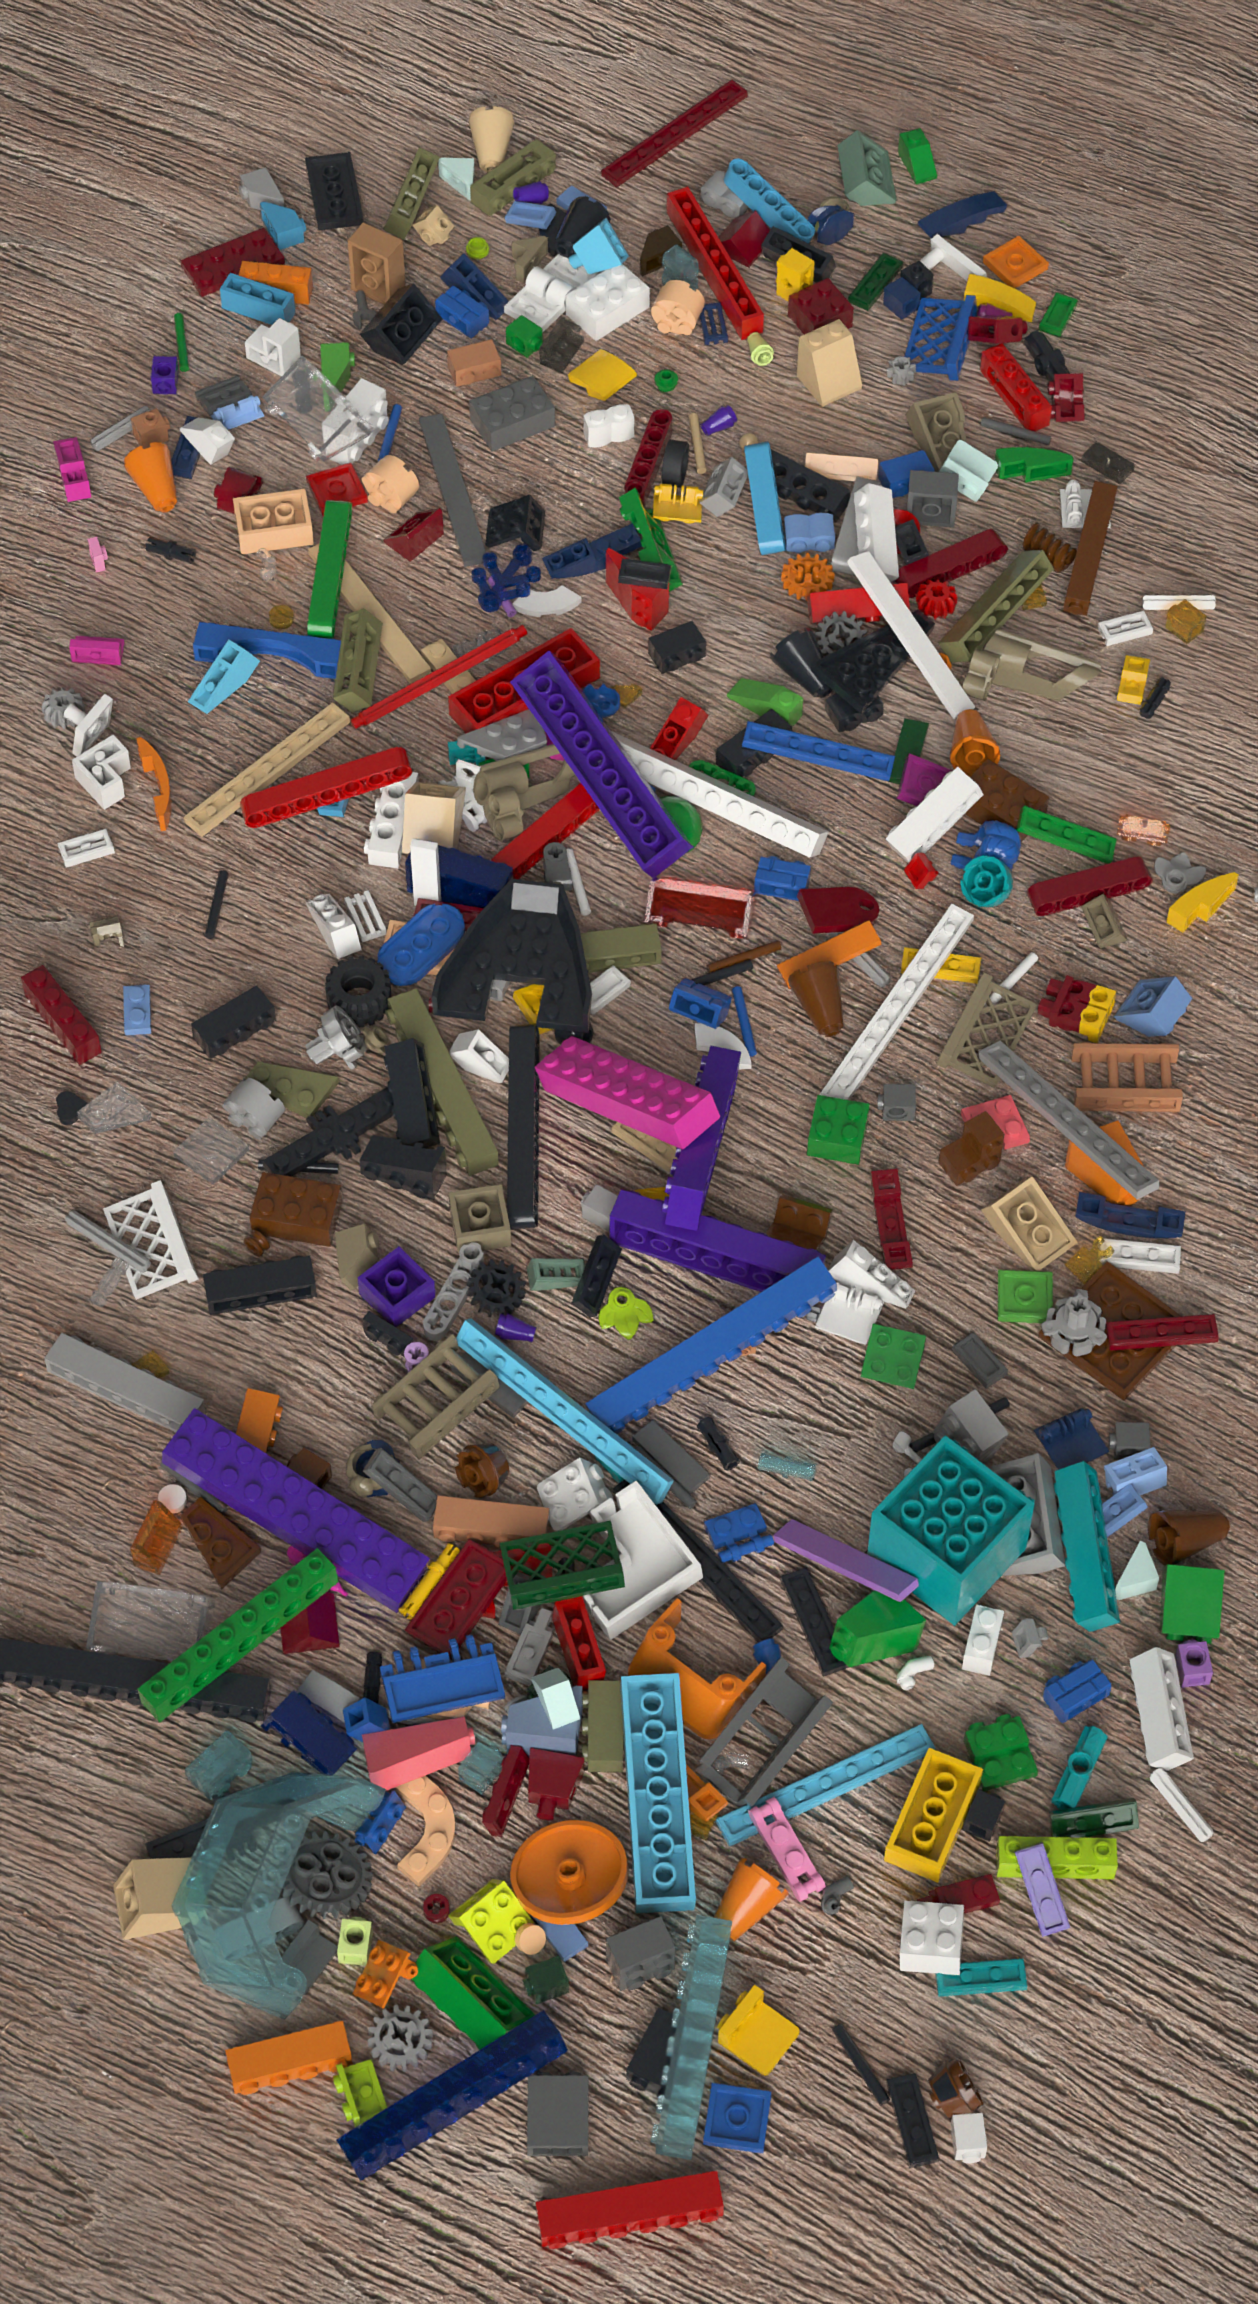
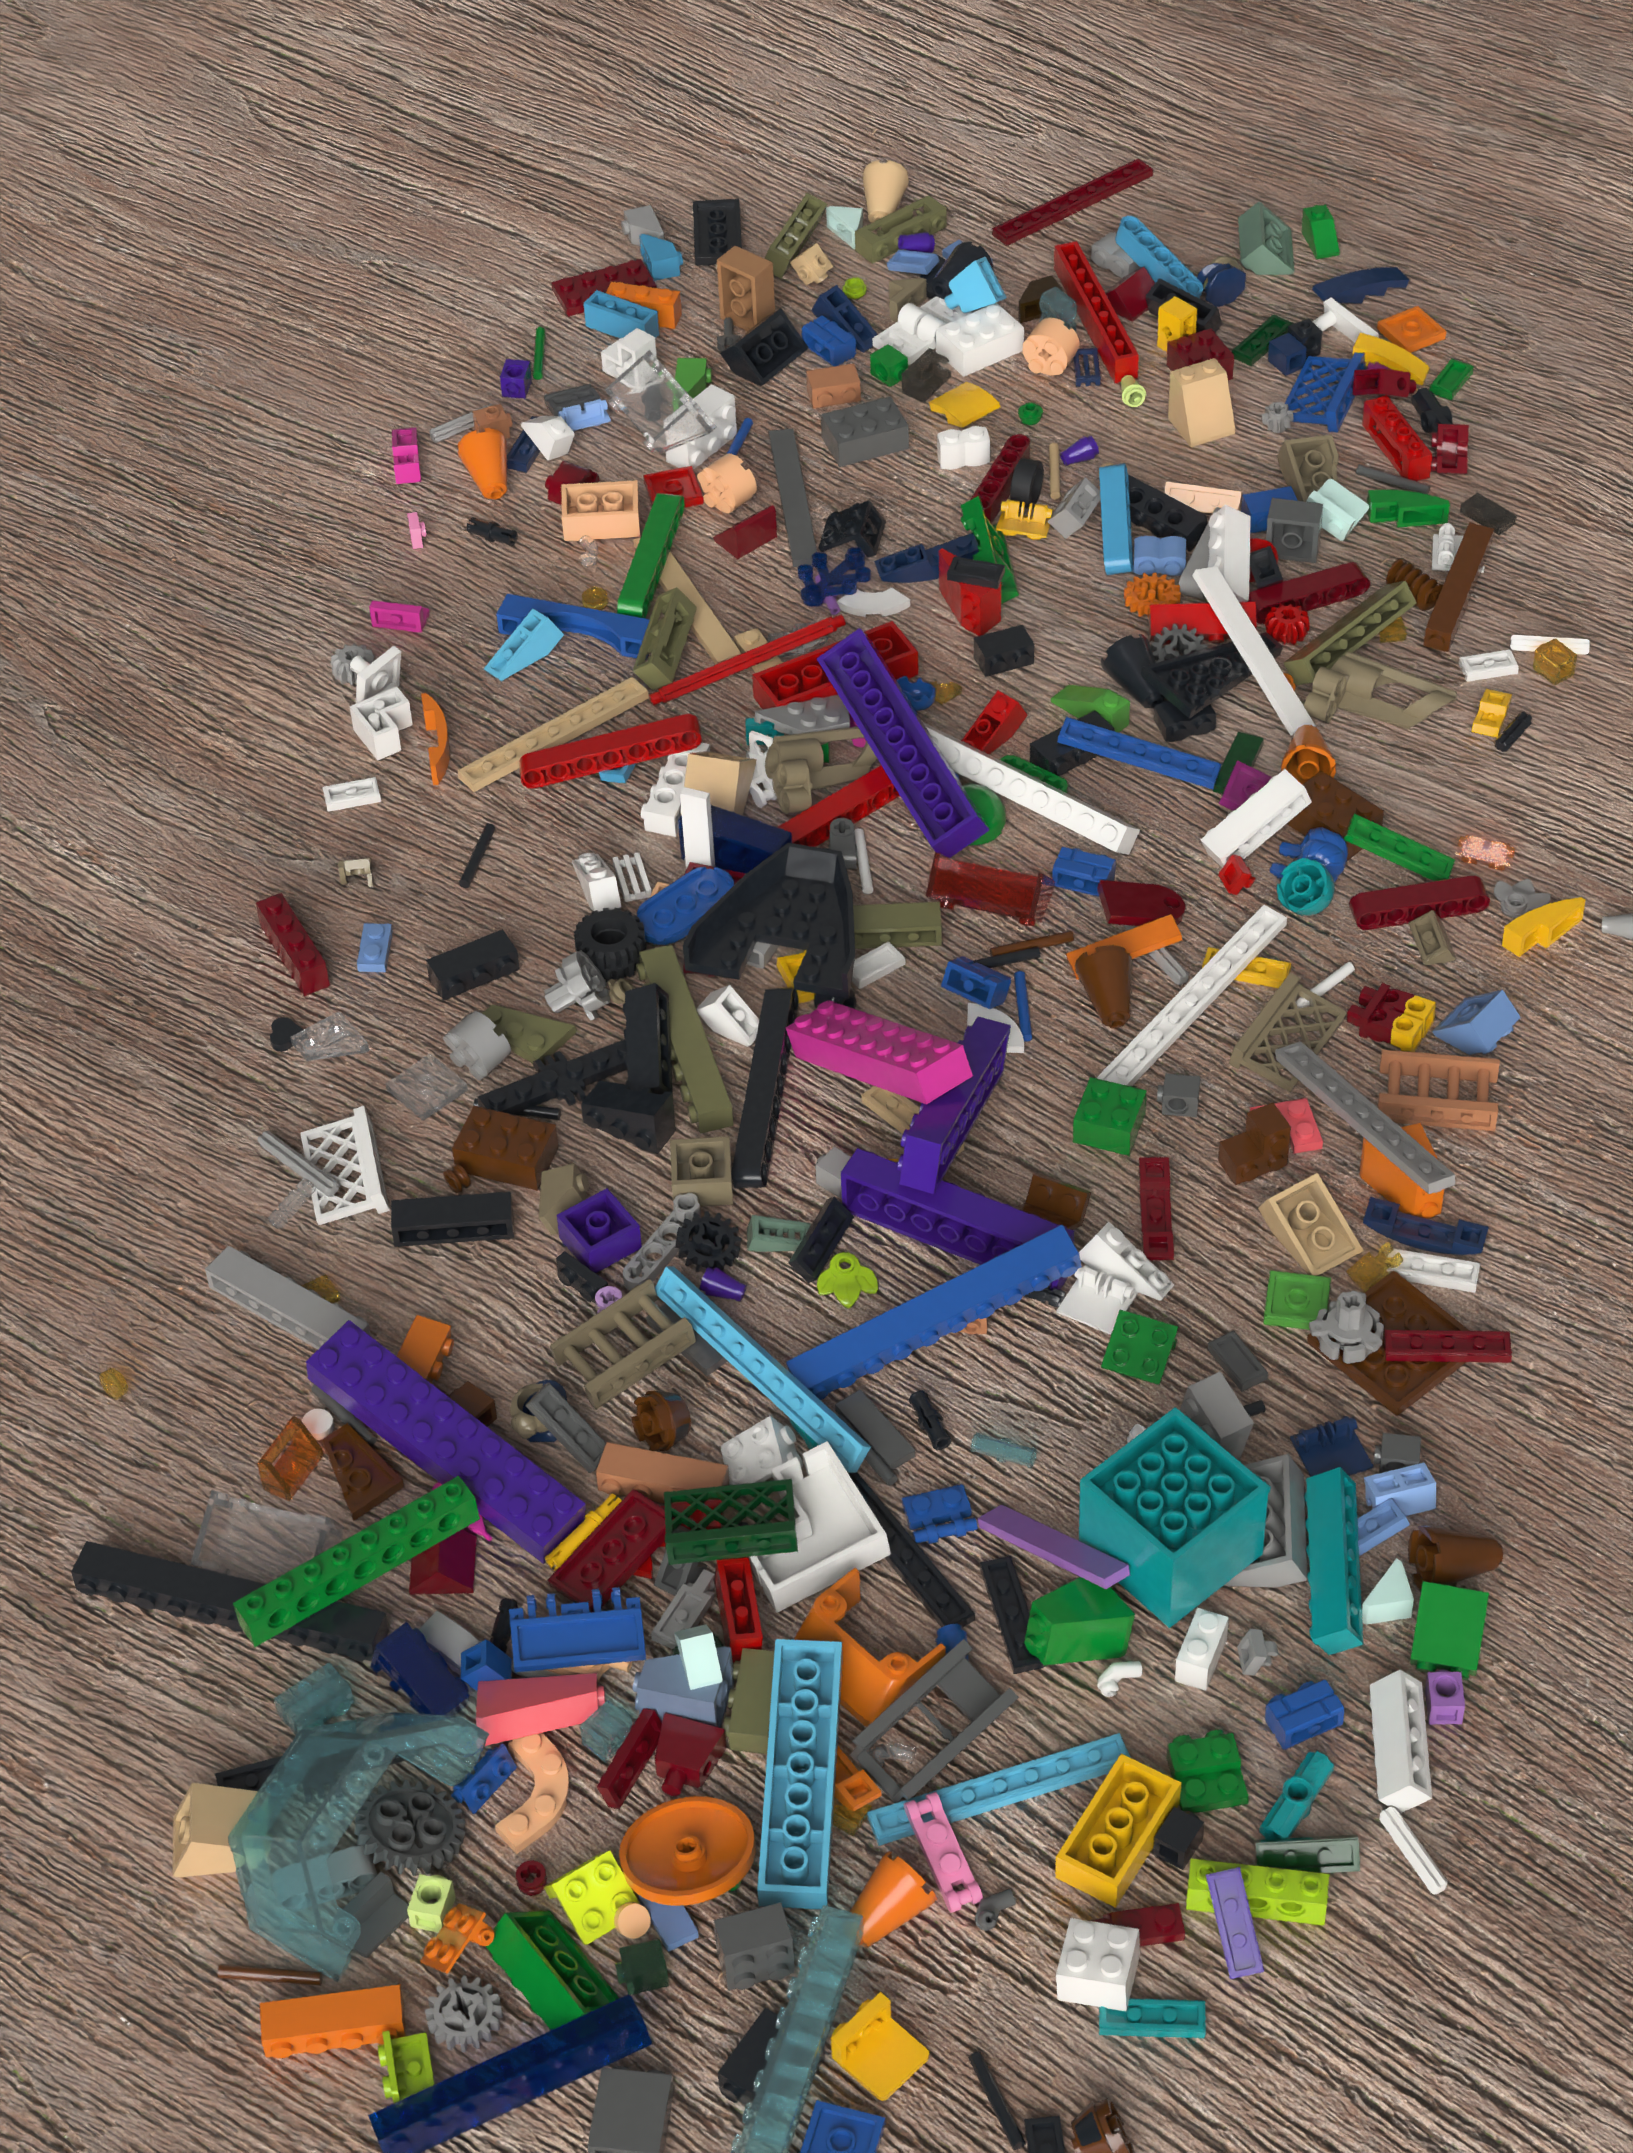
camera: 10 degrees right, 10 degrees down
(223, 2020) = (270, 1974): none -> reddish brown bar

